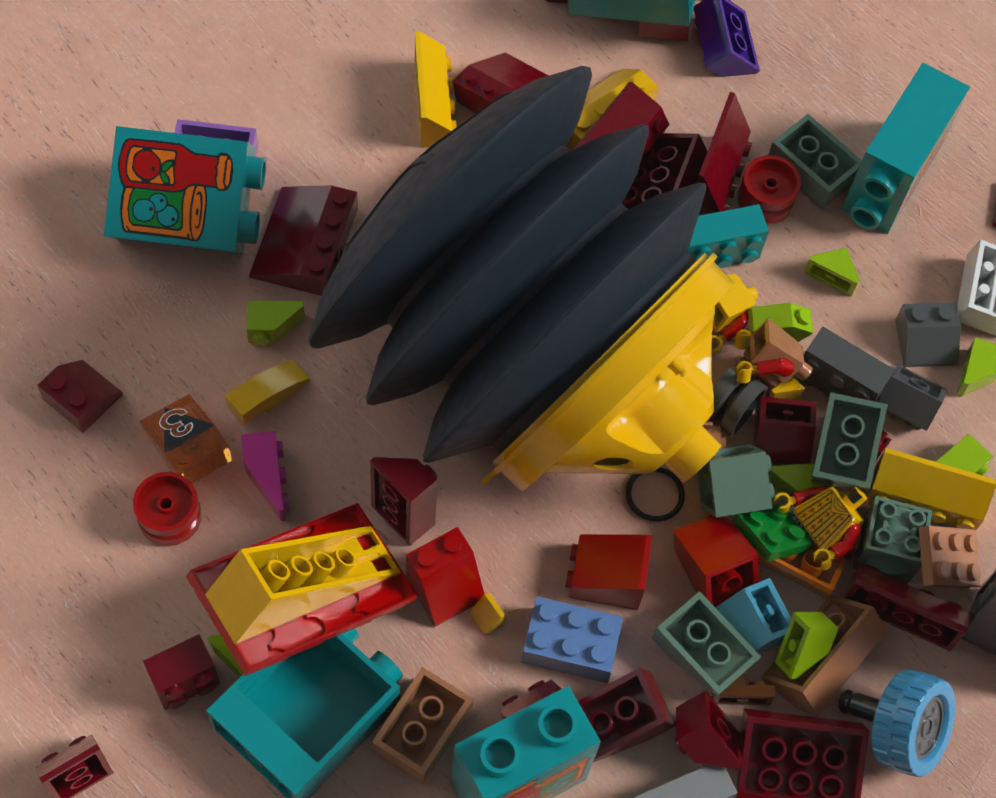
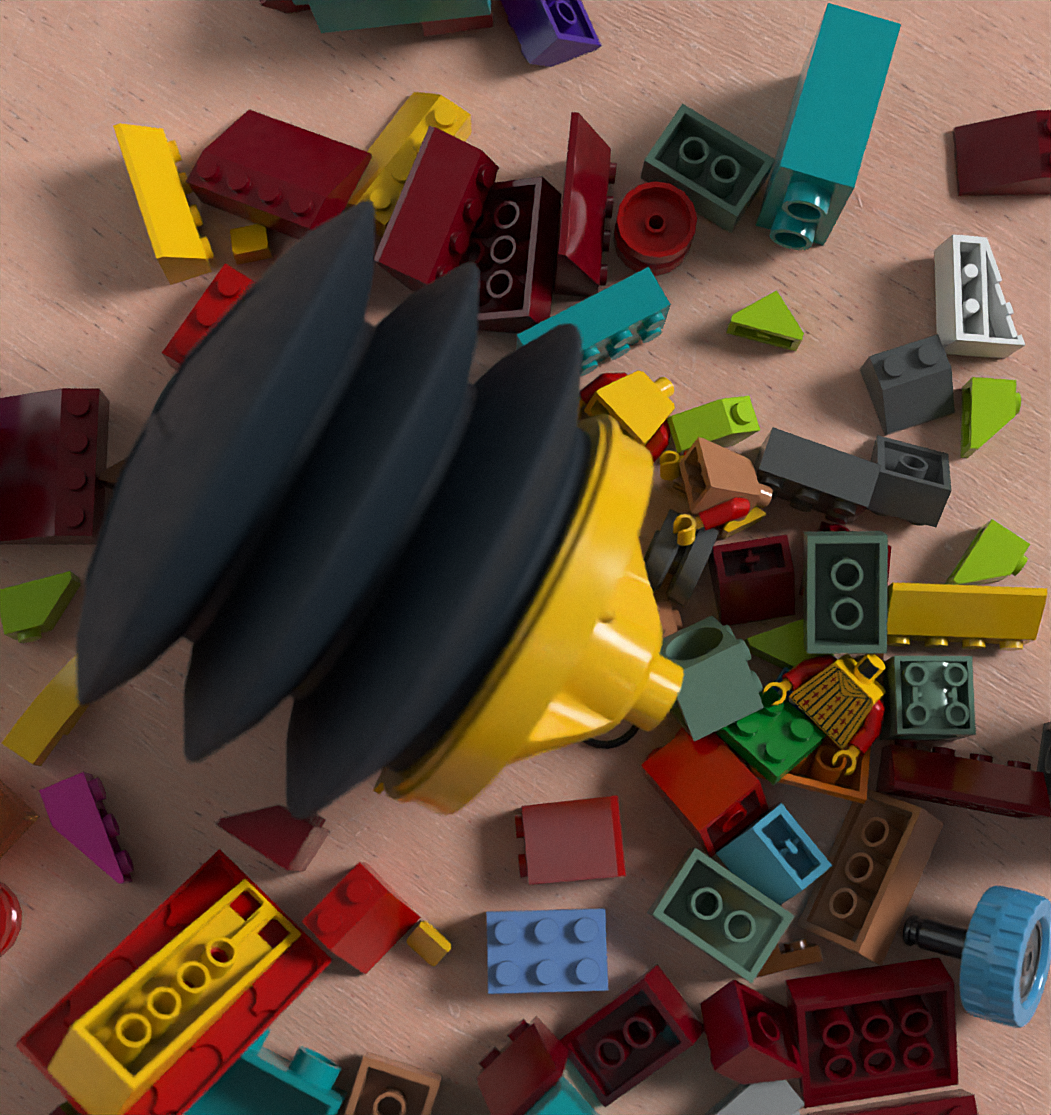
camera: 15 degrees left, 15 degrees up
(805, 642) = (847, 881): lime slope -> none
(949, 557) = (1004, 708): nougat plate -> none

